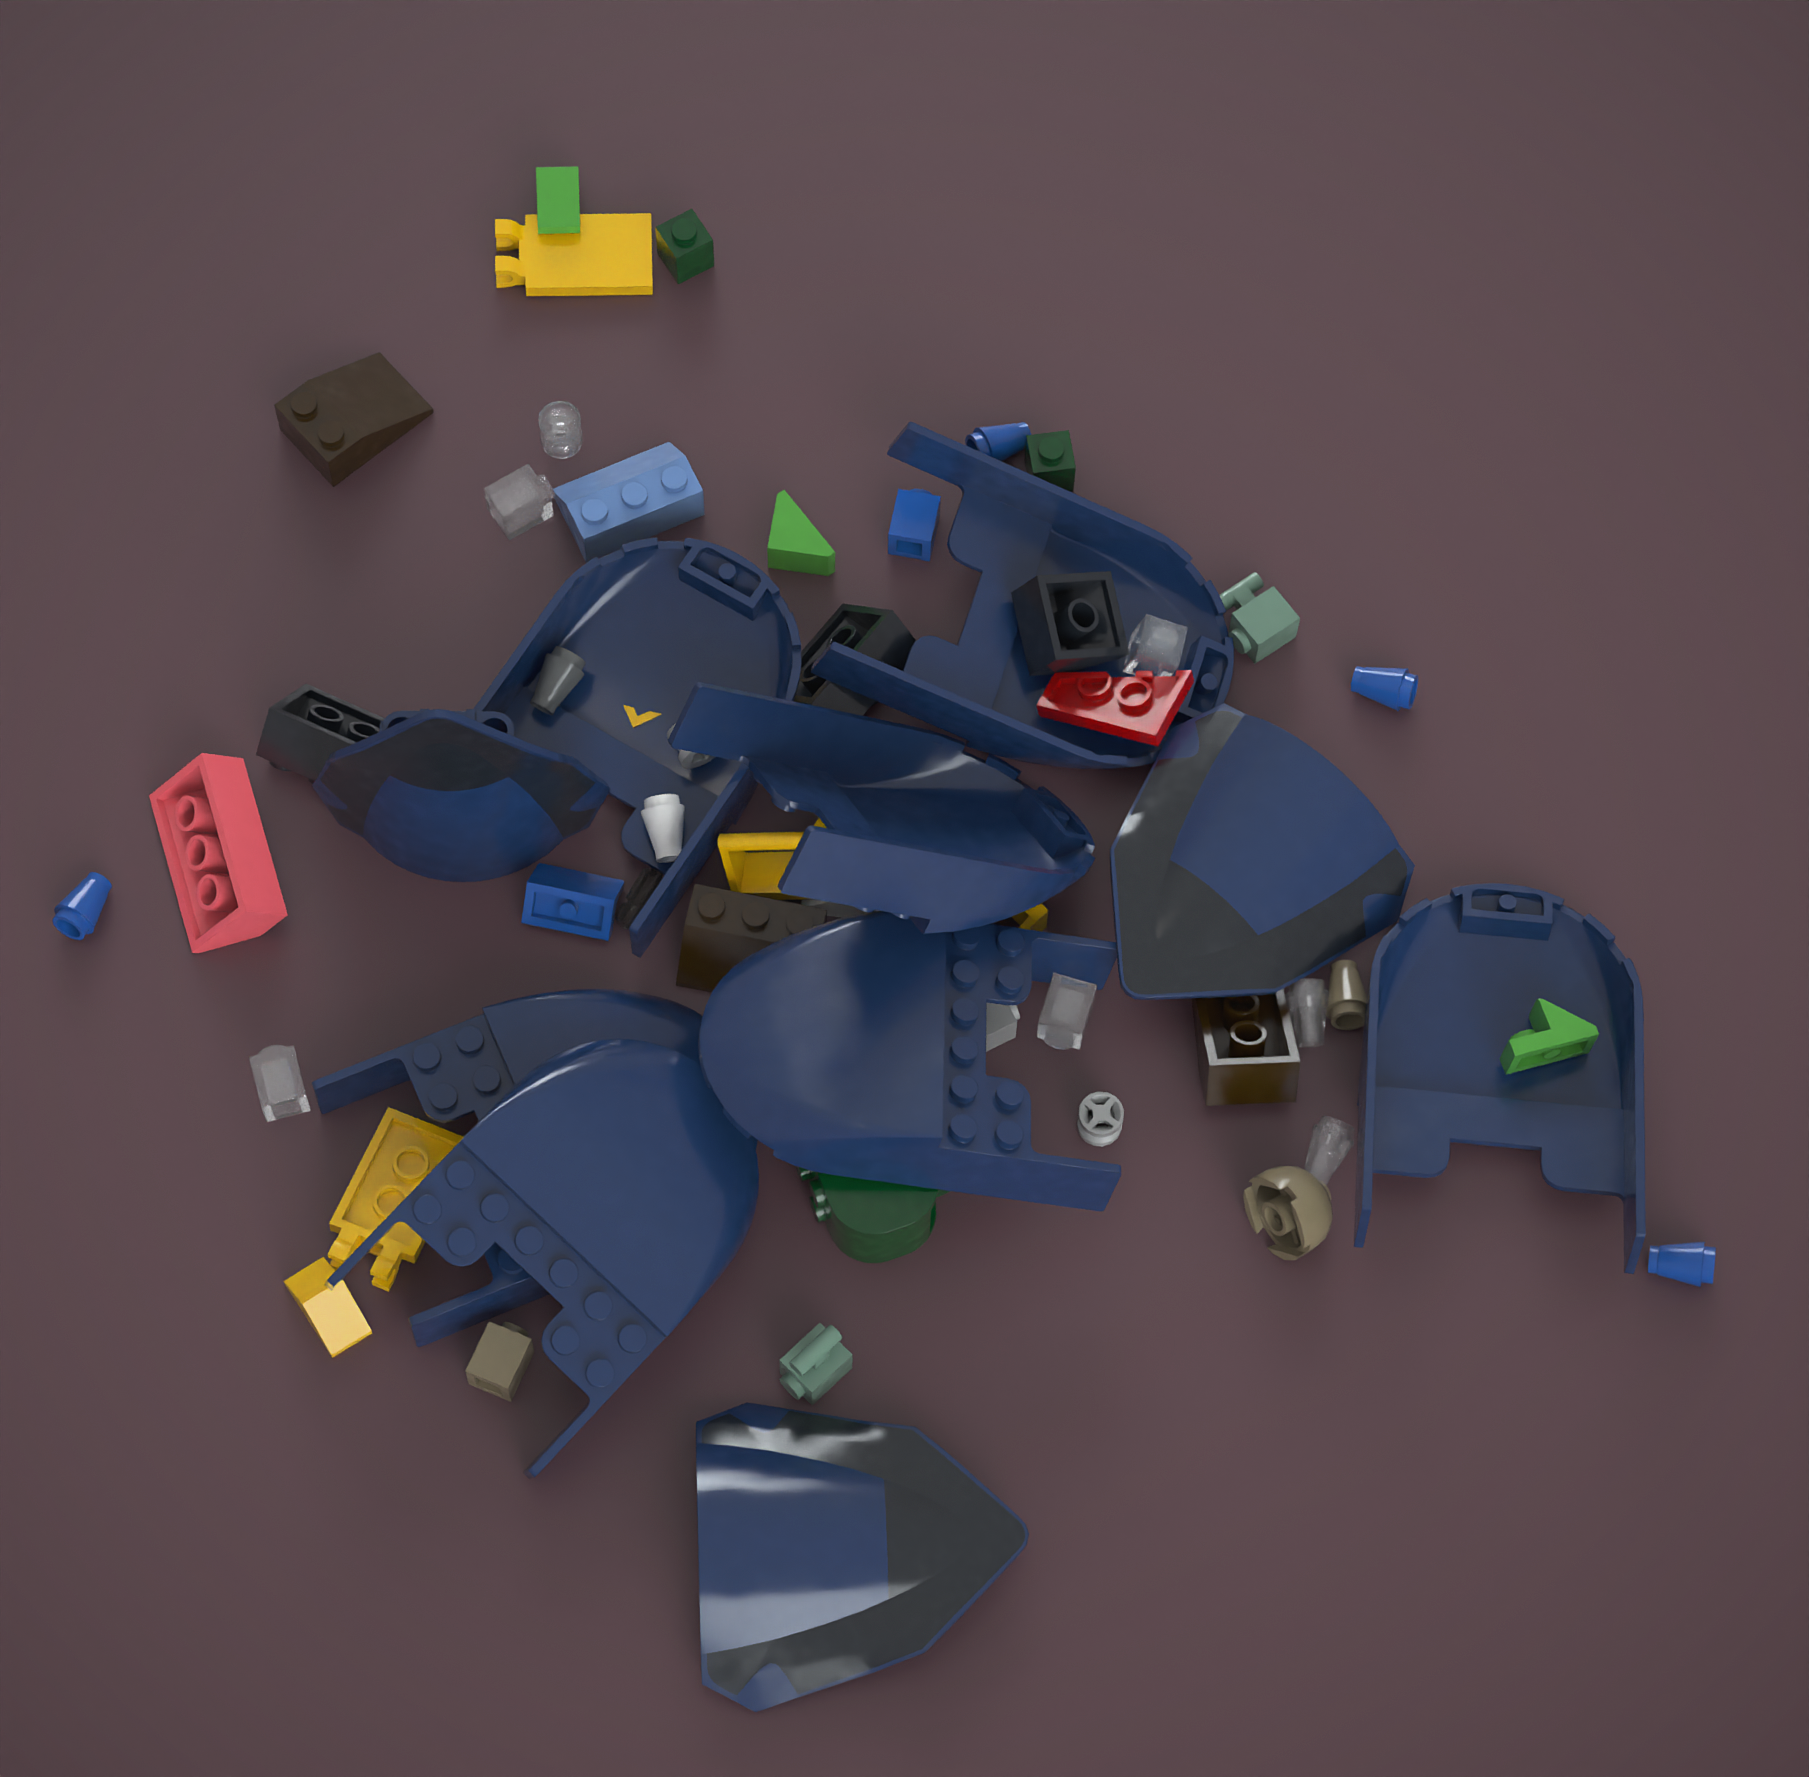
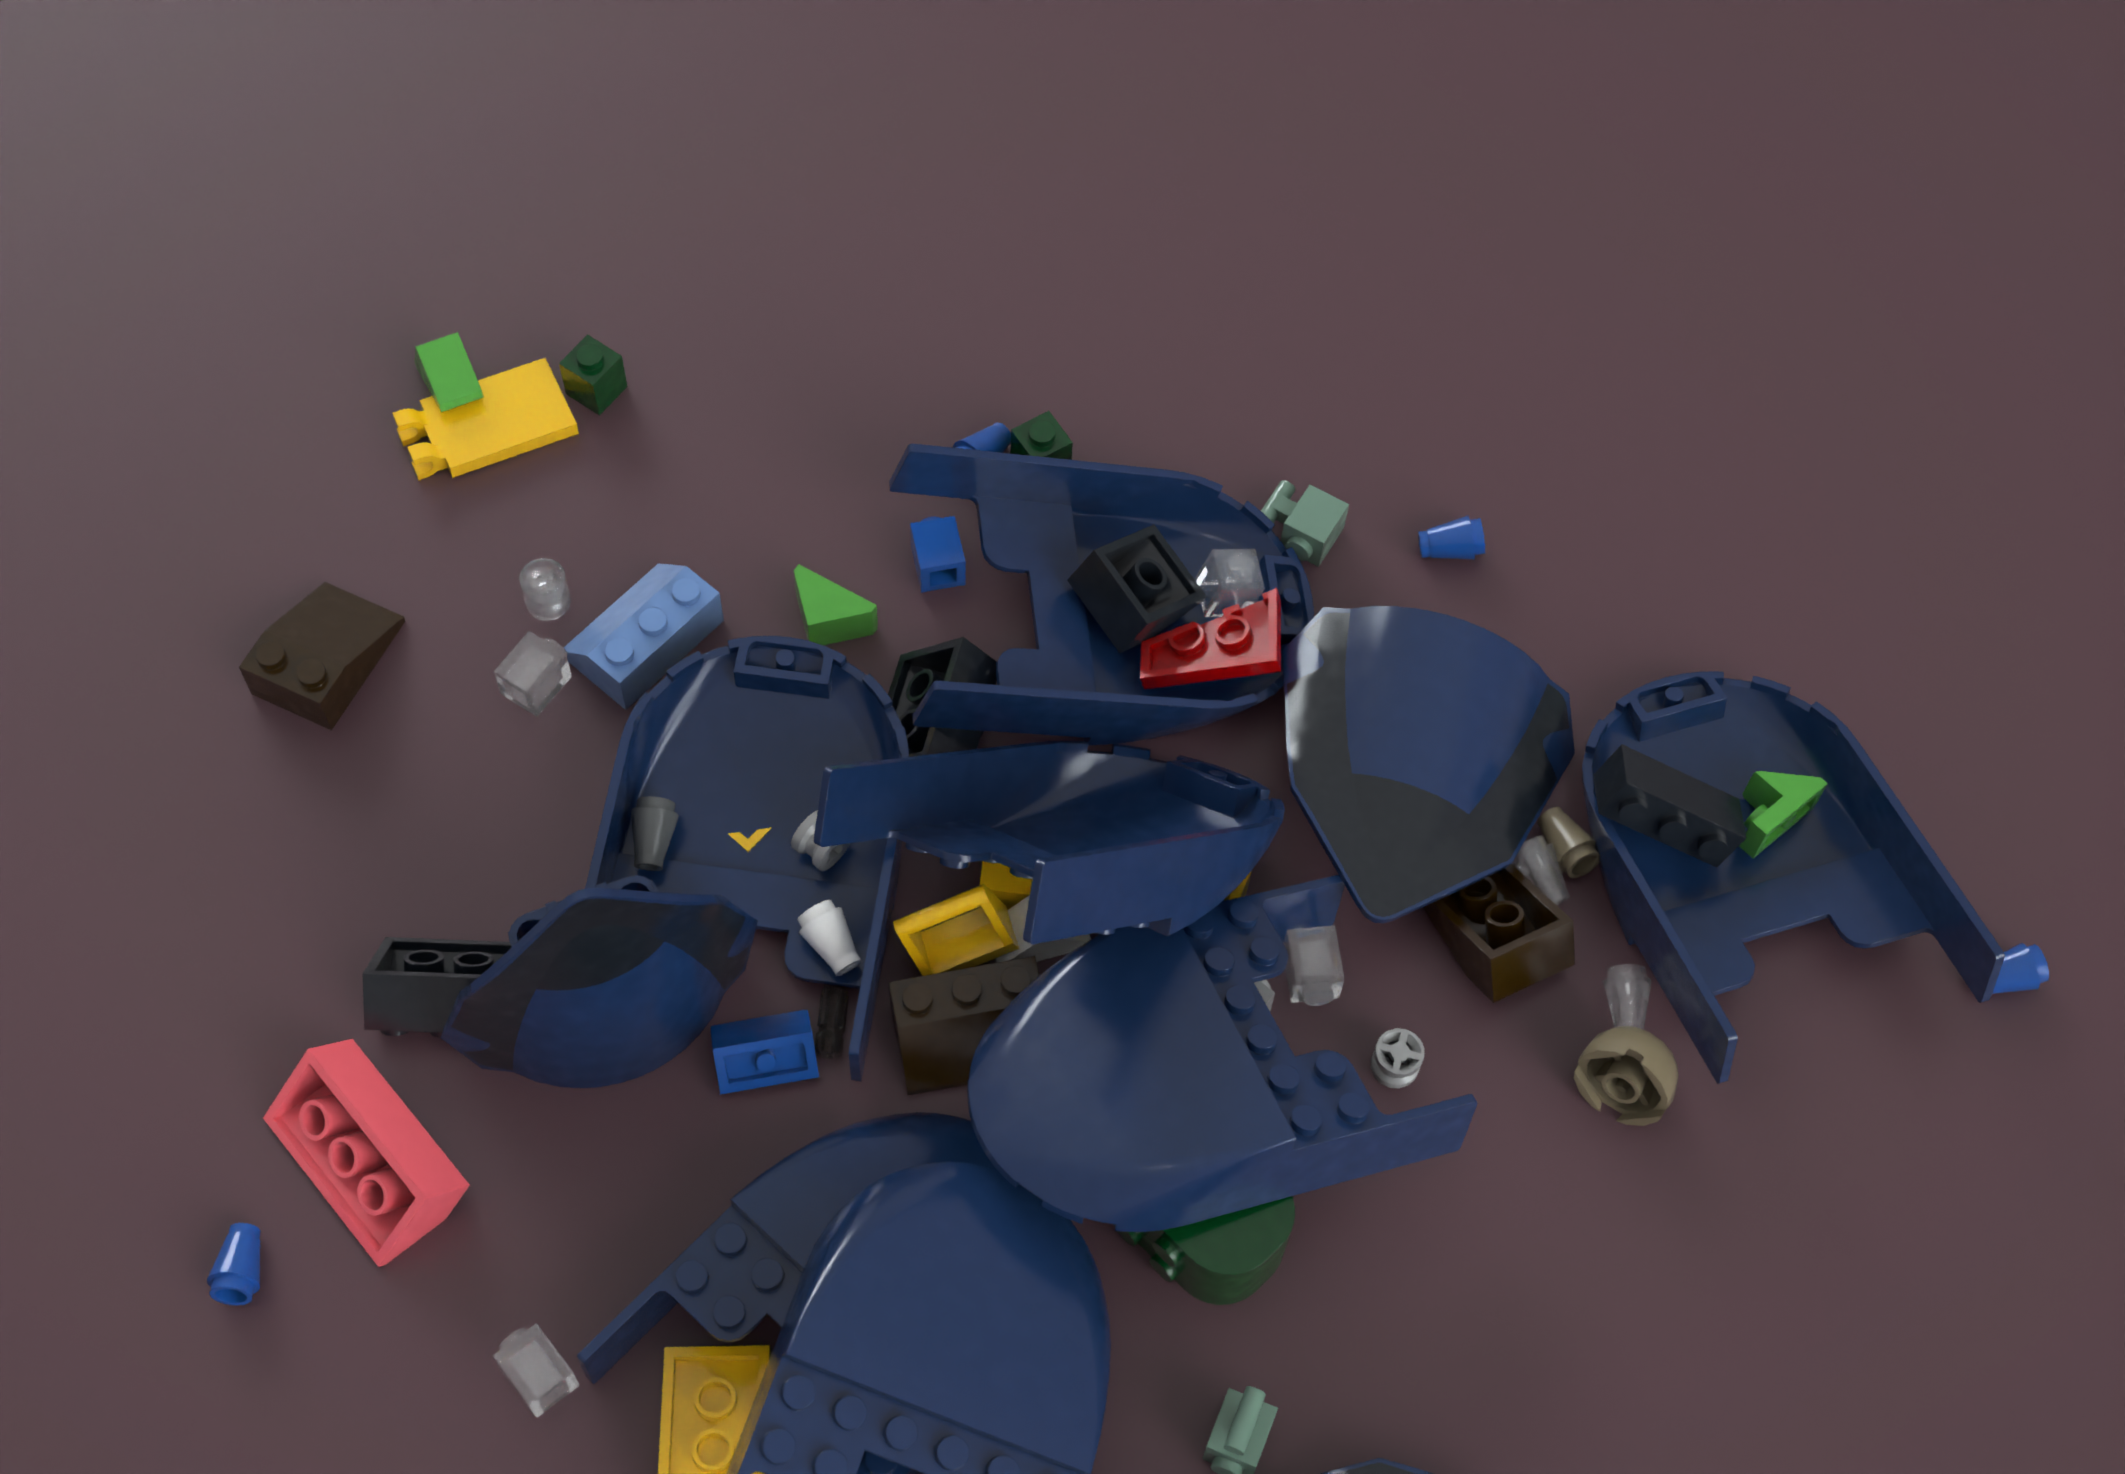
camera: 25 degrees left, 5 degrees down
(1441, 997) = (1669, 806): none -> black brick

